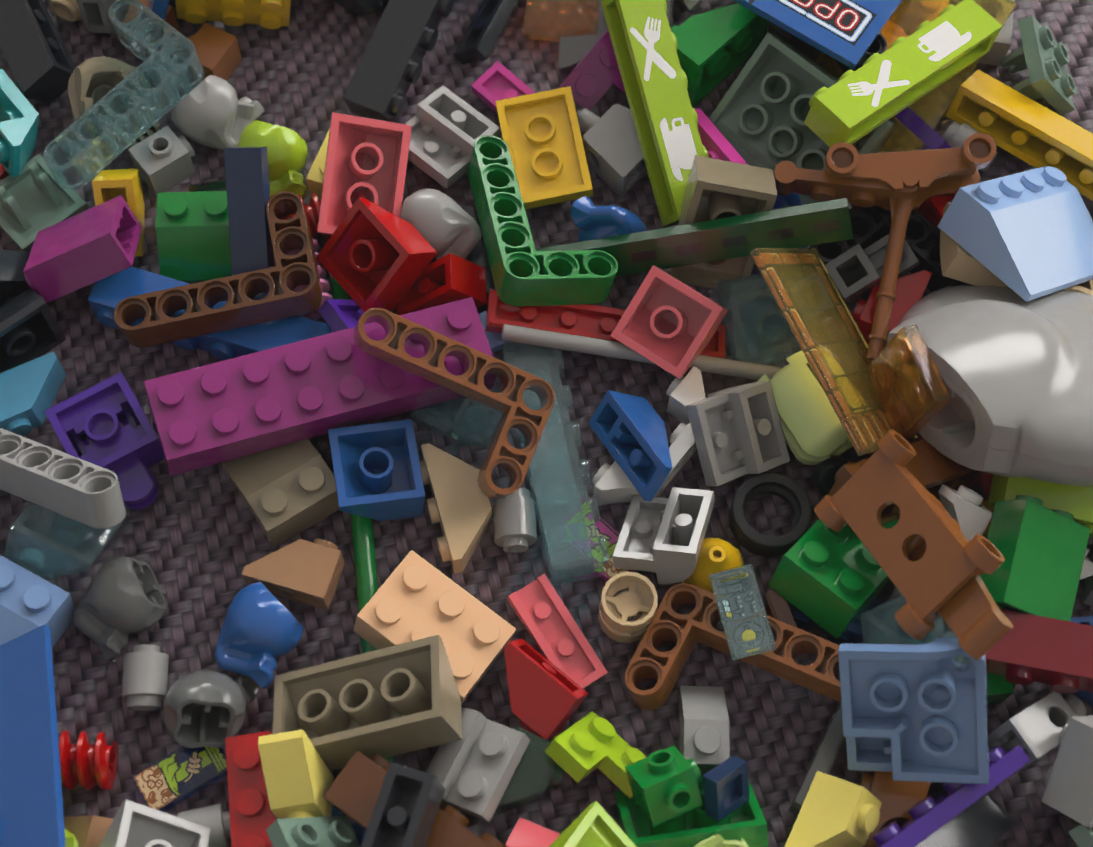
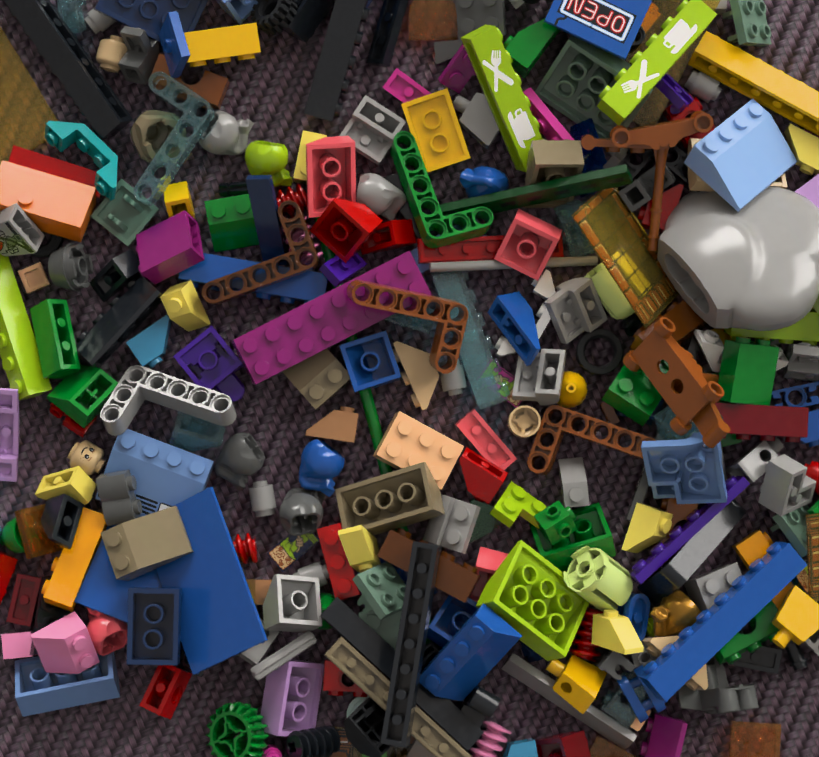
camera: 10 degrees left, 20 degrees up
(85, 341) = (185, 306): none -> light yellow slope
(163, 159) = (199, 170): light grey brick -> none
(726, 788) = (588, 519): dark blue plate -> none
(742, 612) = (588, 421): clear light blue tile -> none
(908, 382) = (671, 271): clear orange plate -> none

